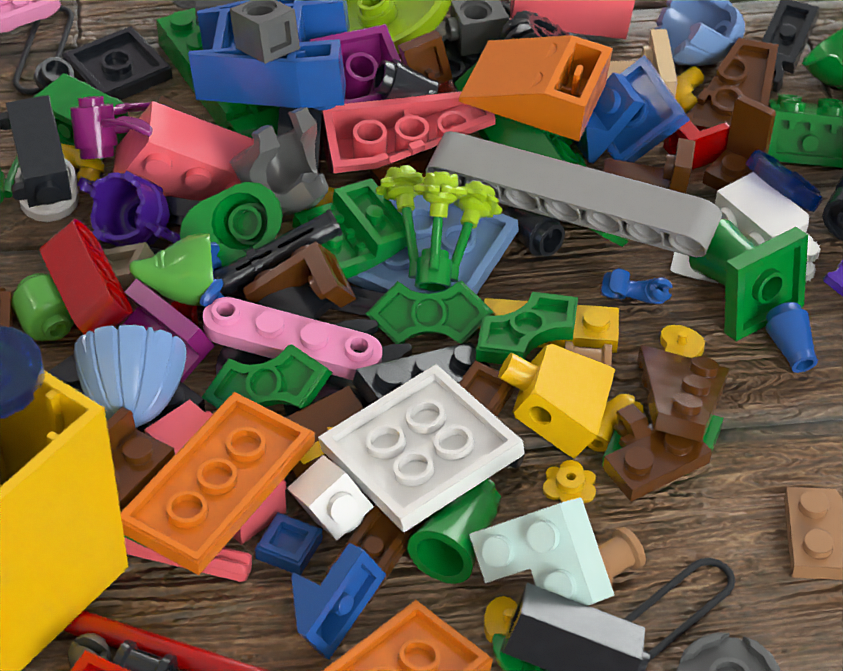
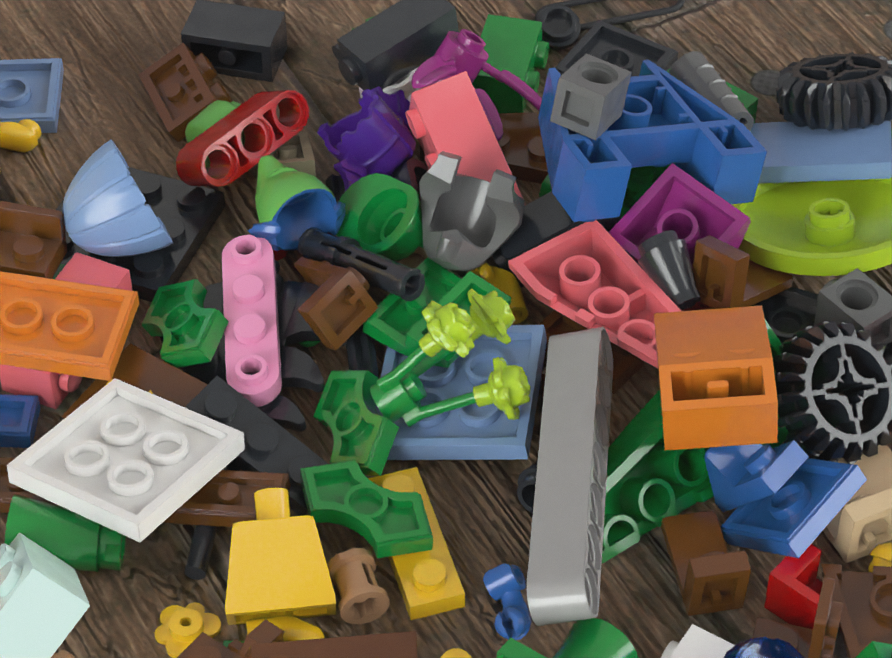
camera: 70 degrees right, 0 degrees up
(158, 314) = (228, 219): magenta panel -> none
(330, 497) = (38, 410): white brick -> none

